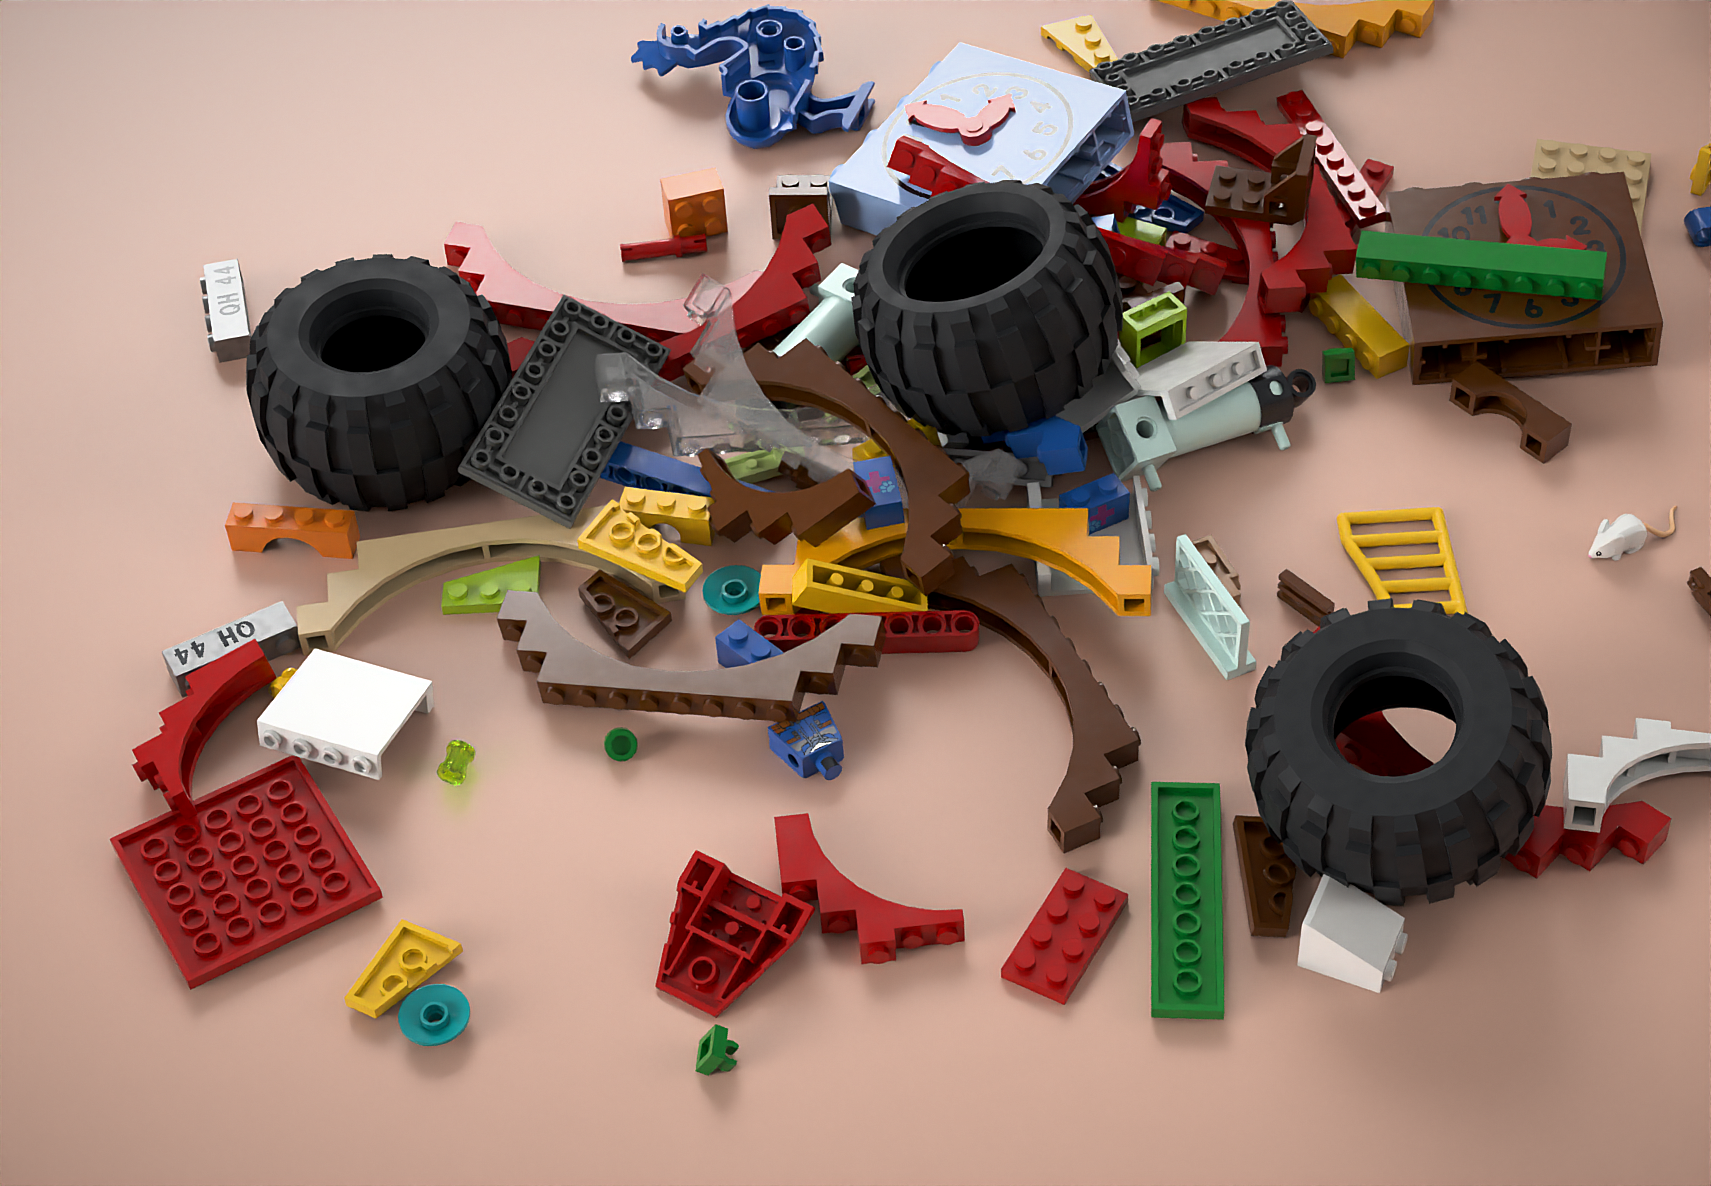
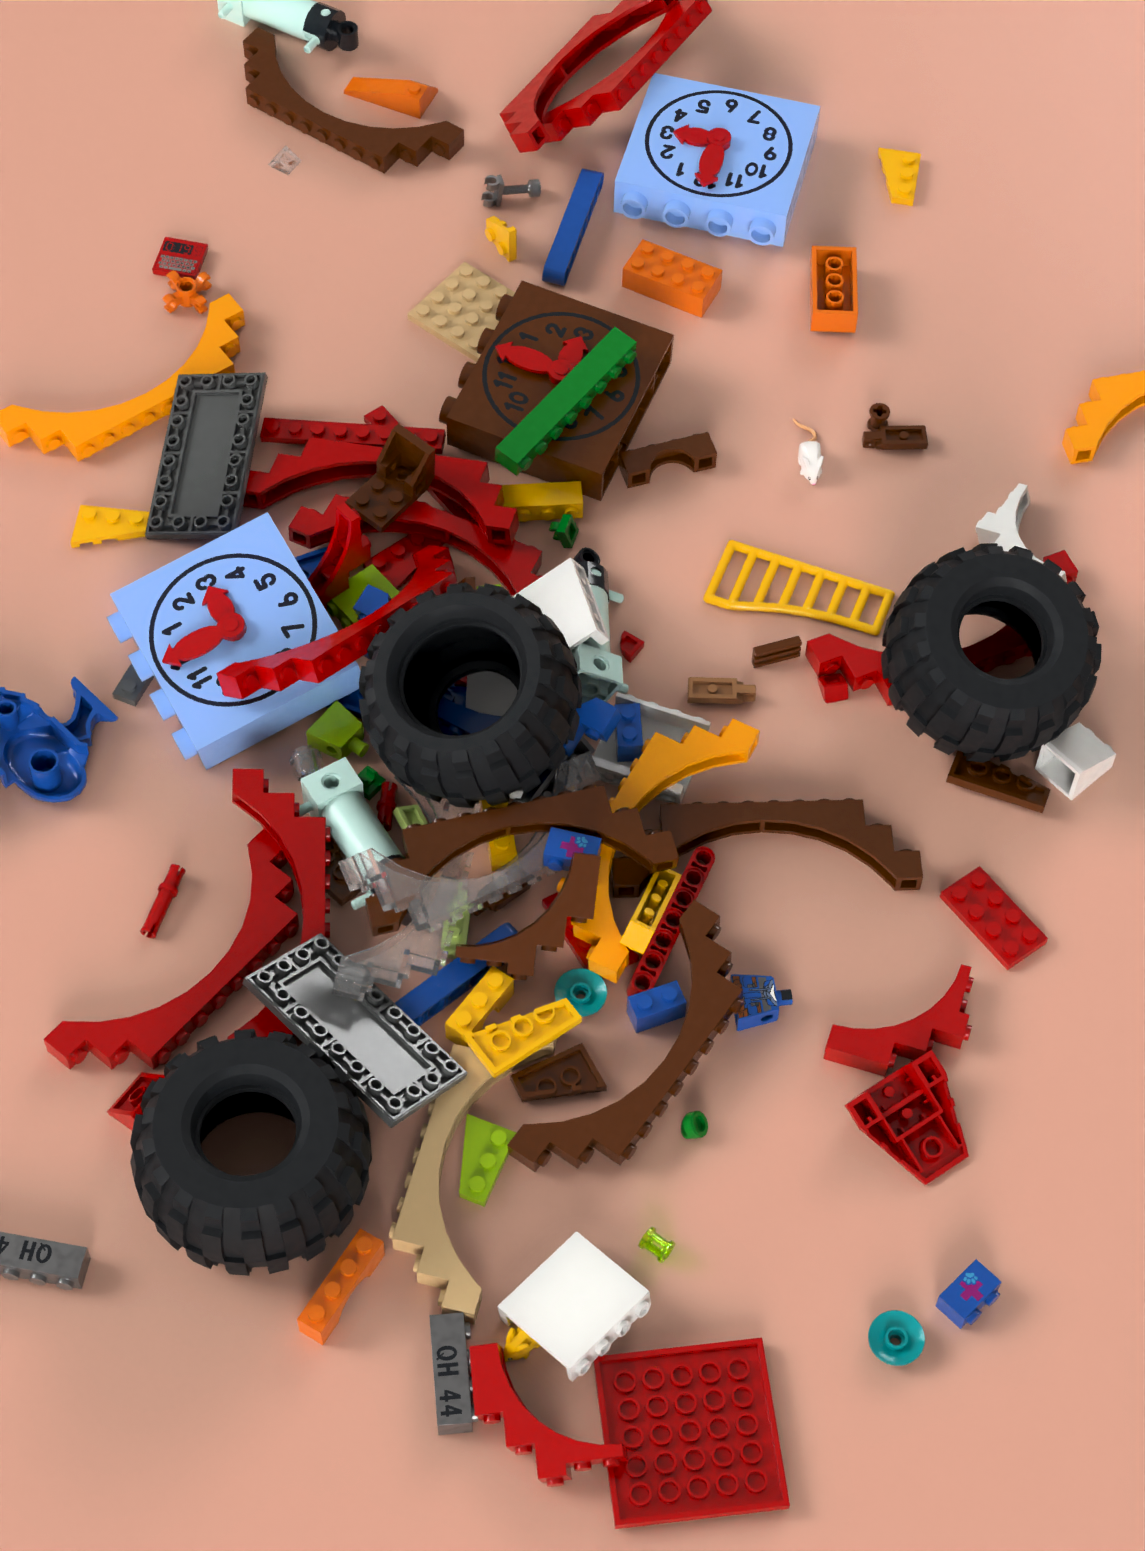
camera: 70 degrees left, 10 degrees up
(399, 967) = (836, 1347): yellow wing -> none
(522, 1067) = (968, 1294): none -> blue brick
(694, 203) = (141, 858): orange brick -> none
(713, 1049) = (1004, 1166): green tile -> none
(795, 193) = (182, 788): reddish brown bracket -> none
(1186, 901) = (998, 834): green plate -> none
(1210, 611) = (774, 716): light aqua fence -> none
(1225, 477) = (630, 646): none -> red tile

